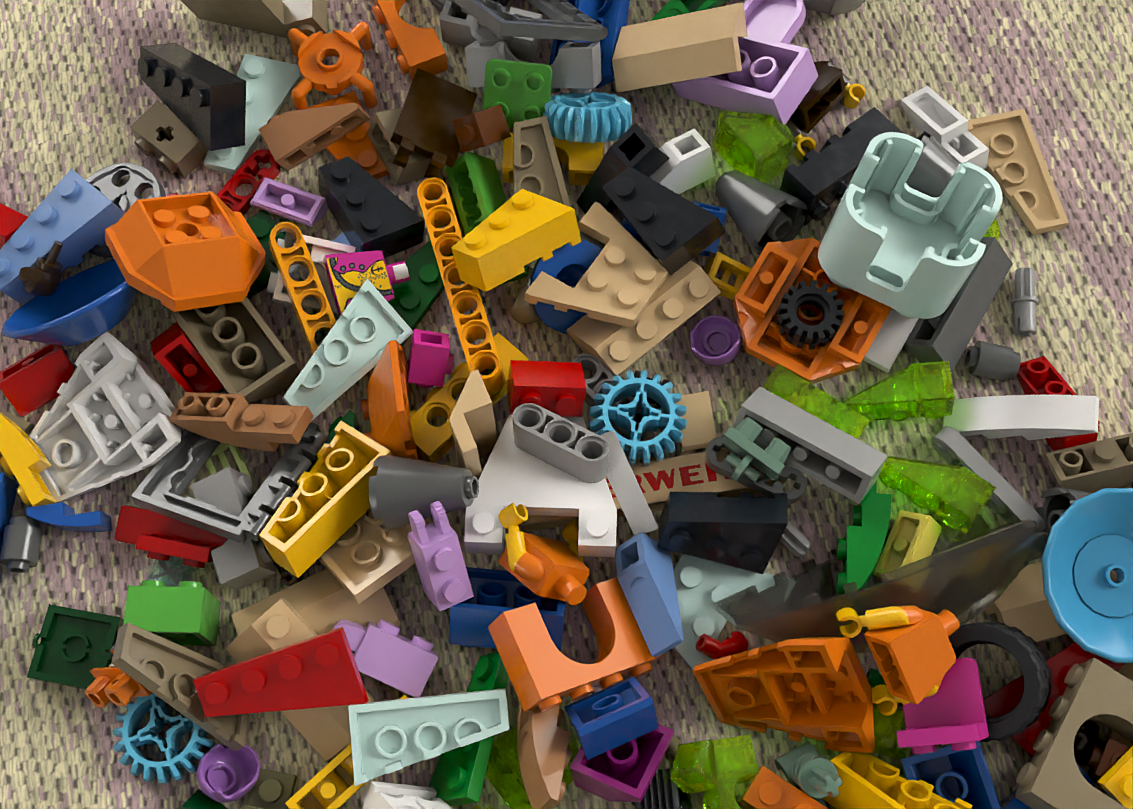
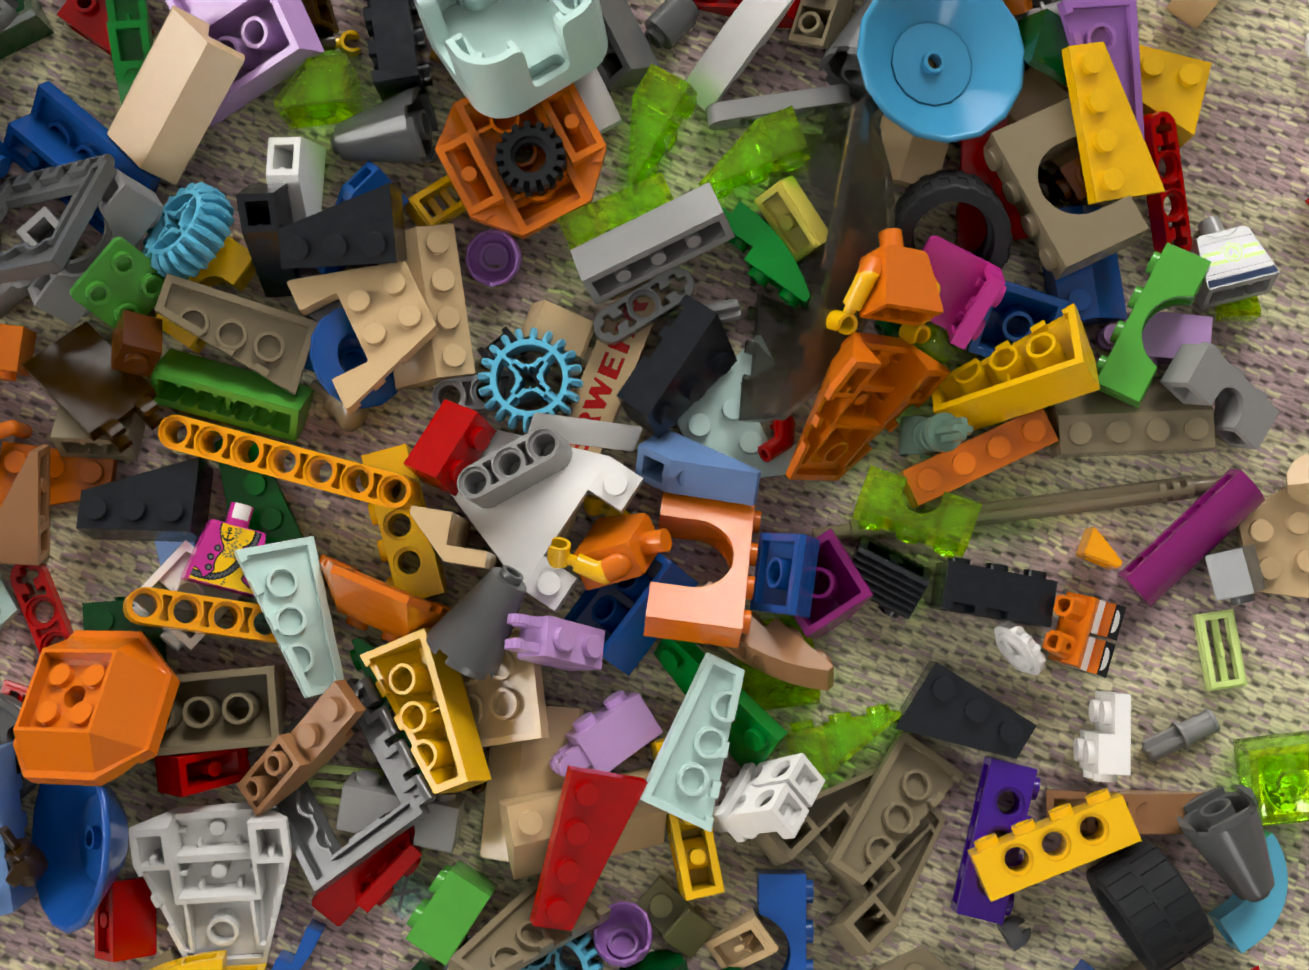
camera: 55 degrees left, 15 degrees up
(289, 202) = (90, 576): lavender slope -> none
(429, 358) = (348, 536): dark pink brick -> none
(513, 237) = (283, 386): yellow wedge -> none
(695, 767) = (870, 529): clear neon green slope -> none
(742, 443) = (649, 291): sand green hips -> none

